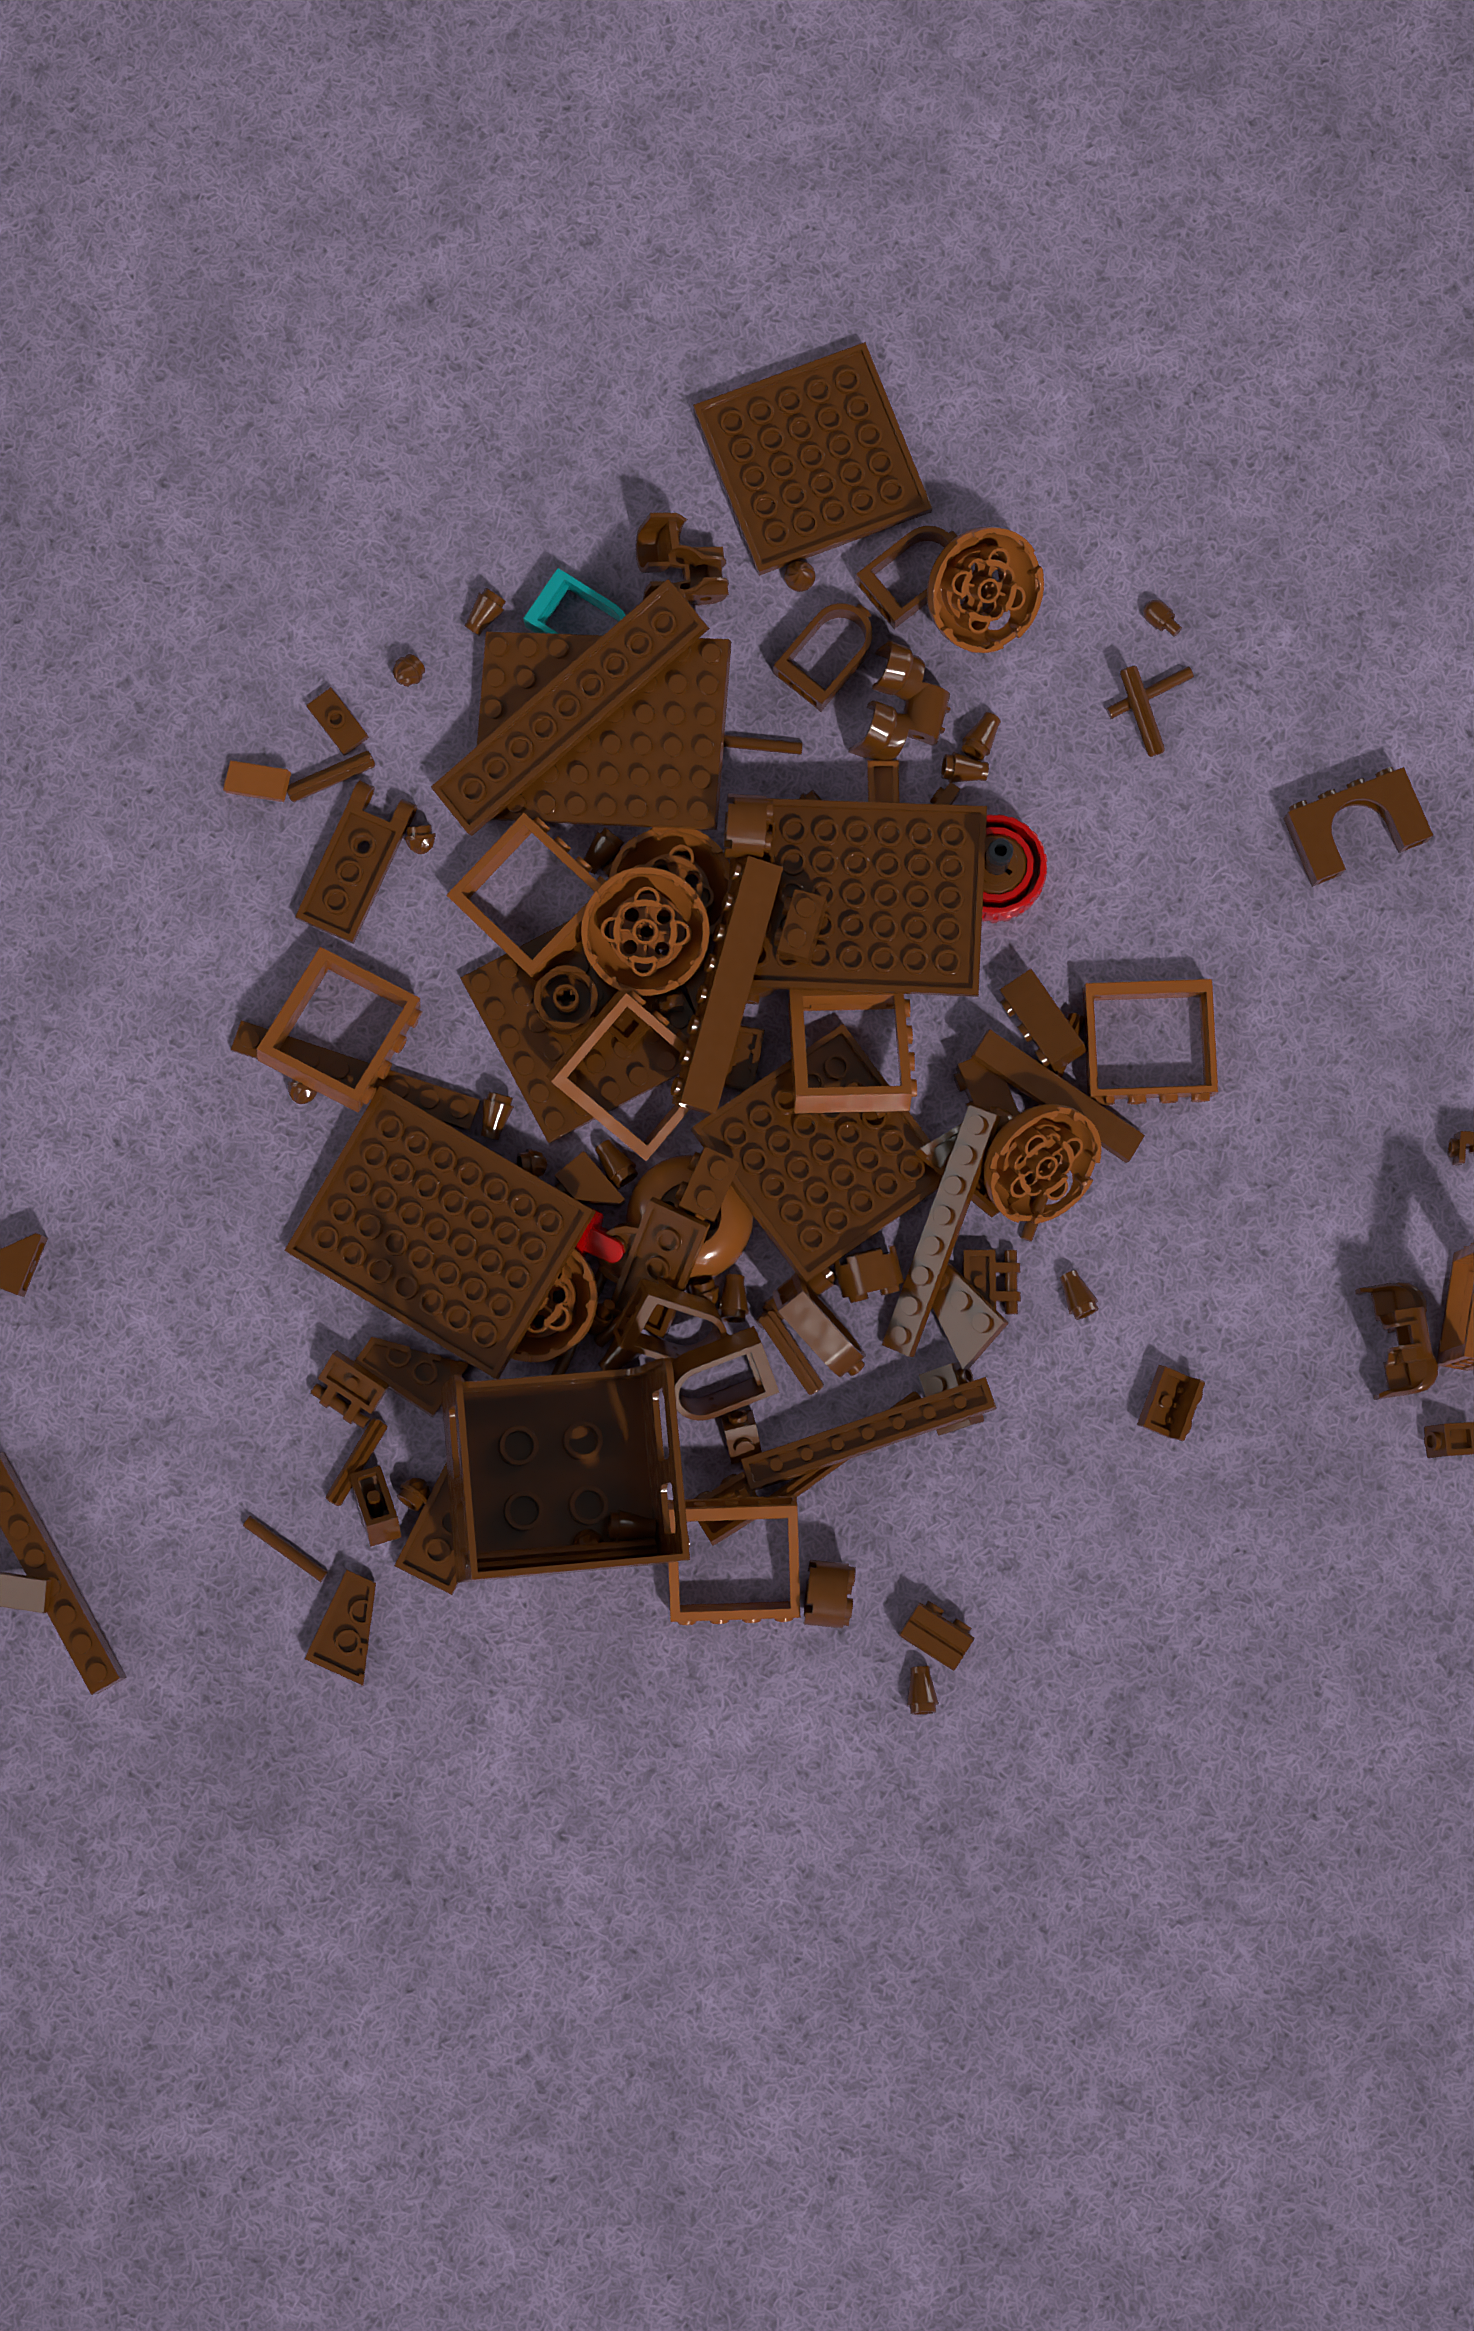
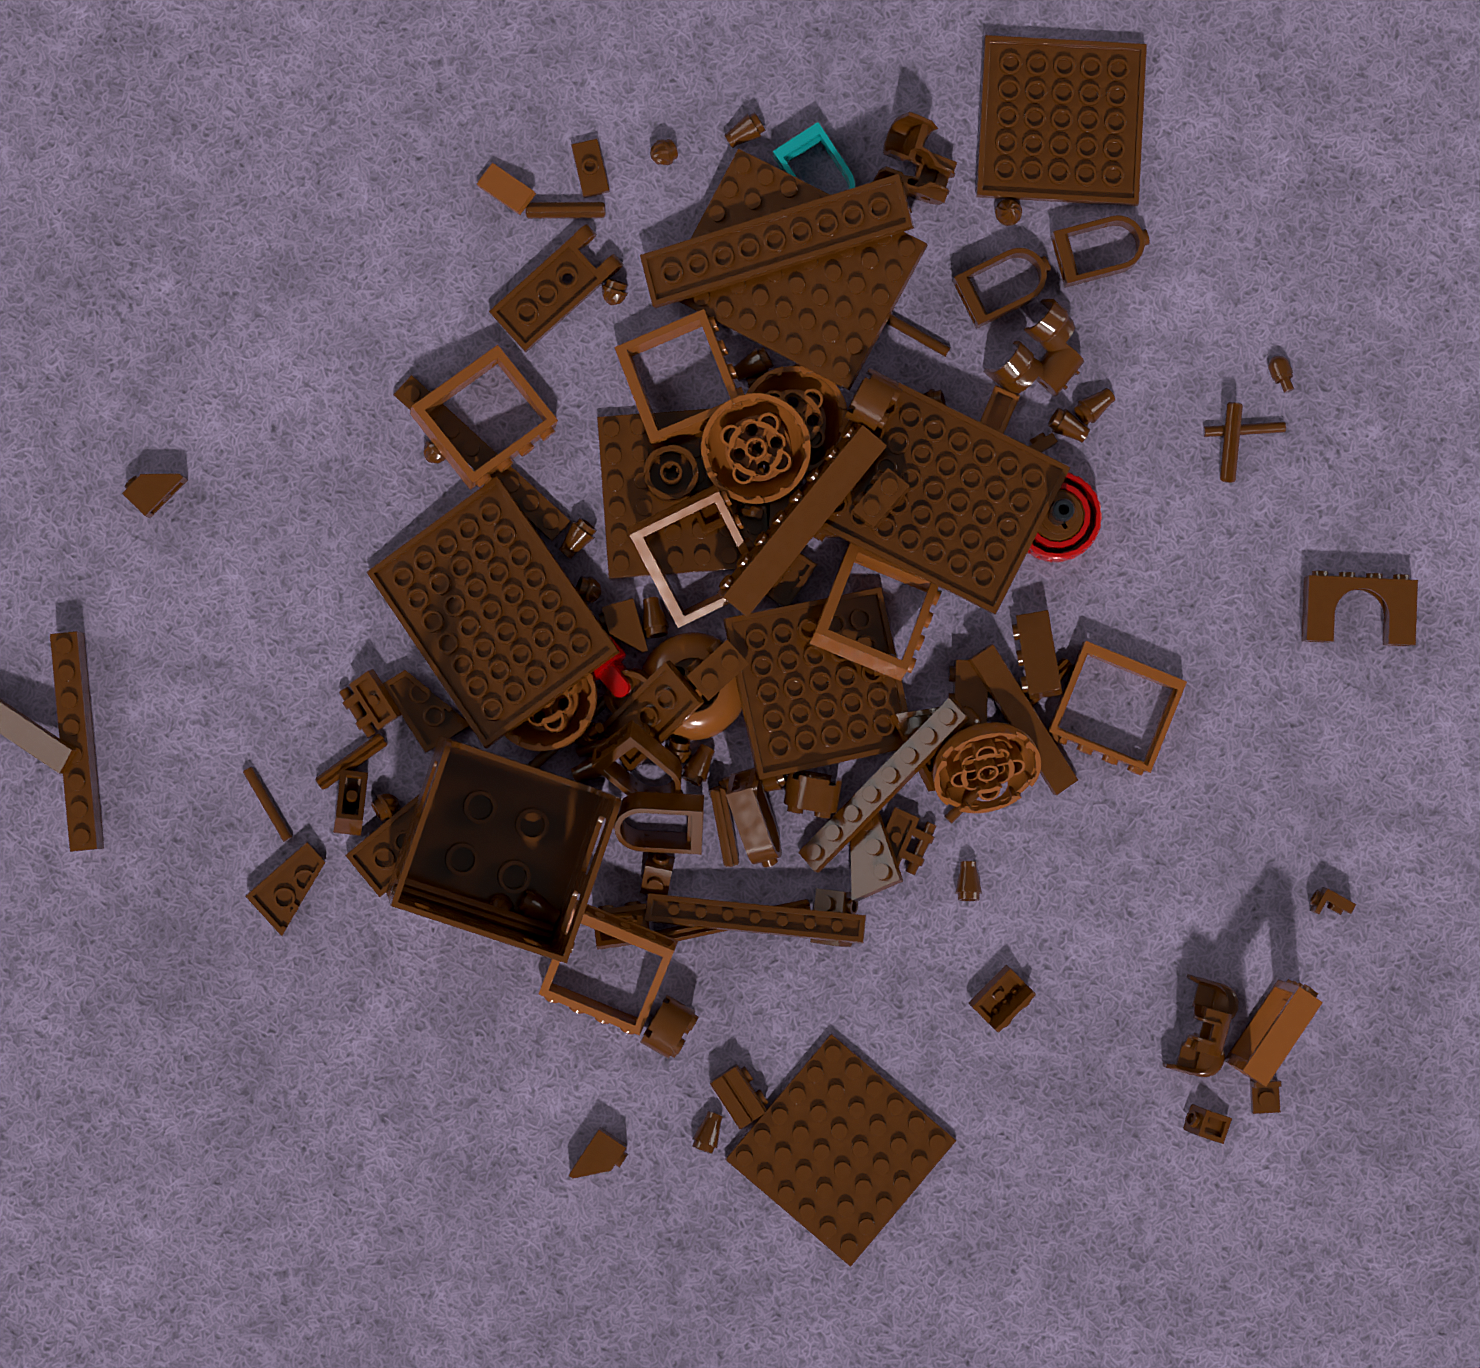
camera: 25 degrees right, 5 degrees up
(815, 1768) = (600, 1155): none -> reddish brown slope
(1017, 590) = (1176, 300): dark orange brick -> none
(1072, 1645) = (840, 1150): none -> reddish brown plate

